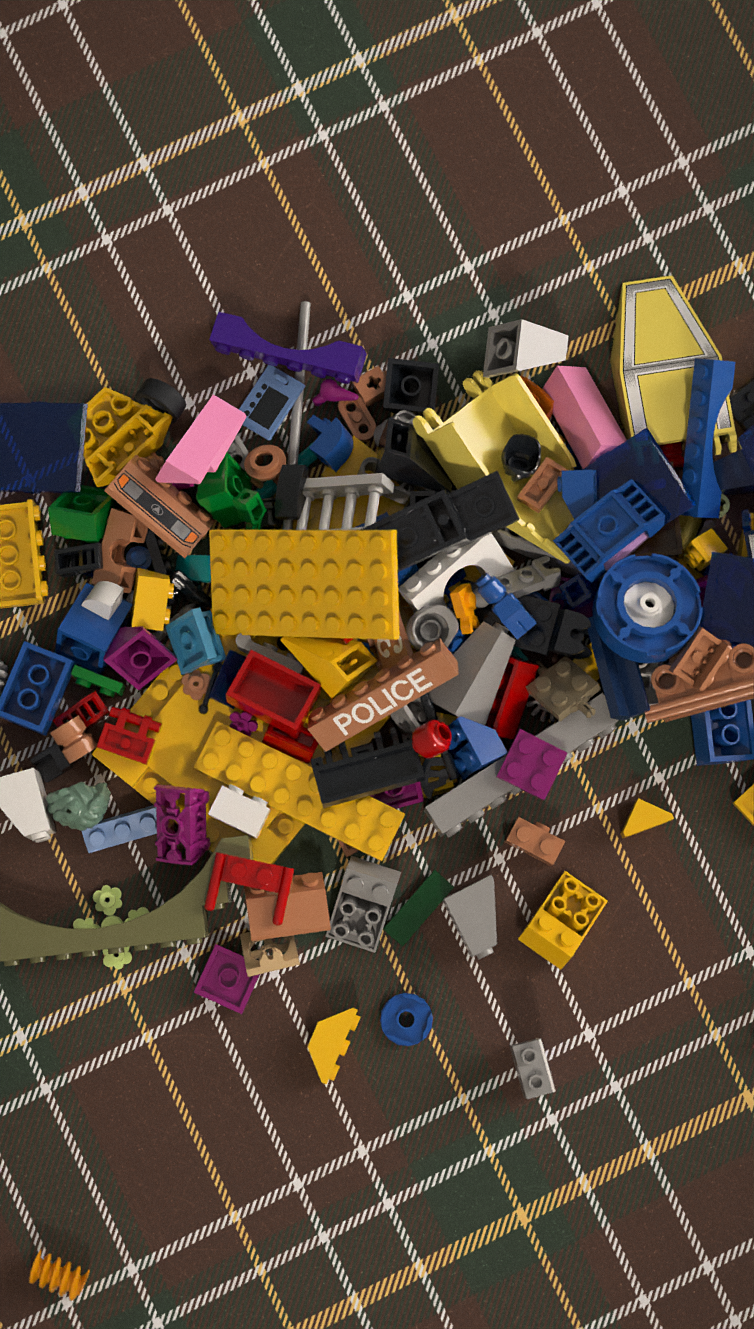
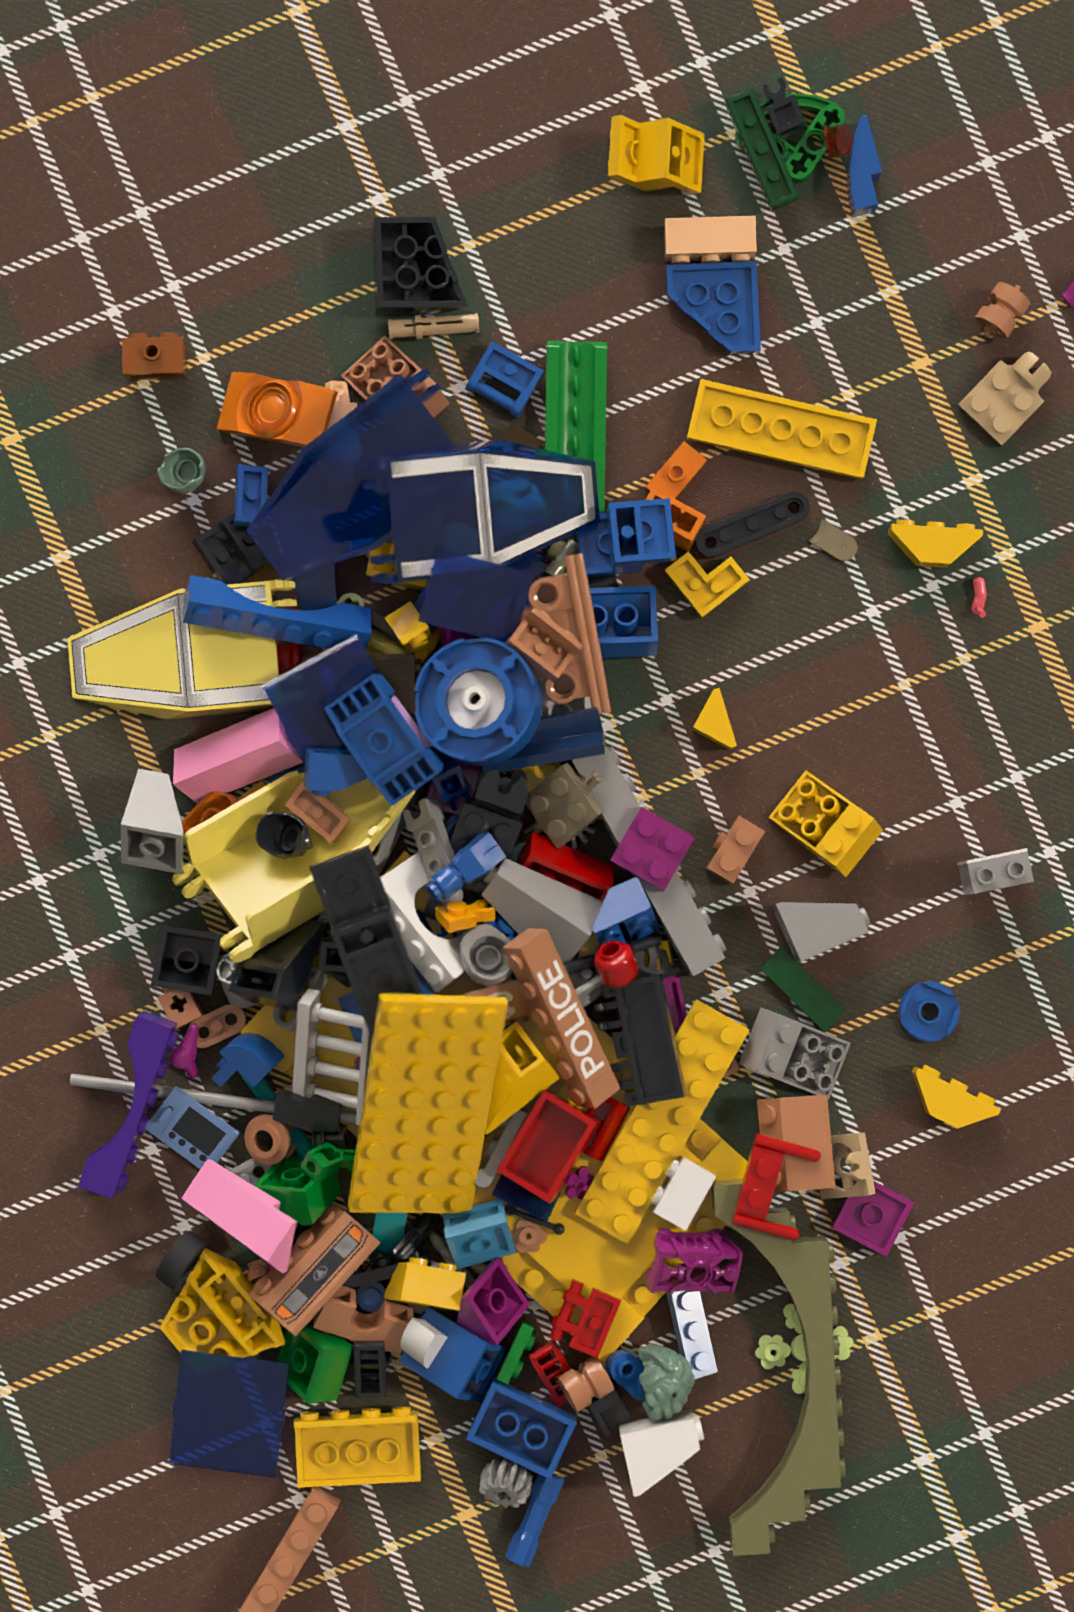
camera: 85 degrees left, 5 degrees up
(79, 774) = (629, 1378): none -> blue plate

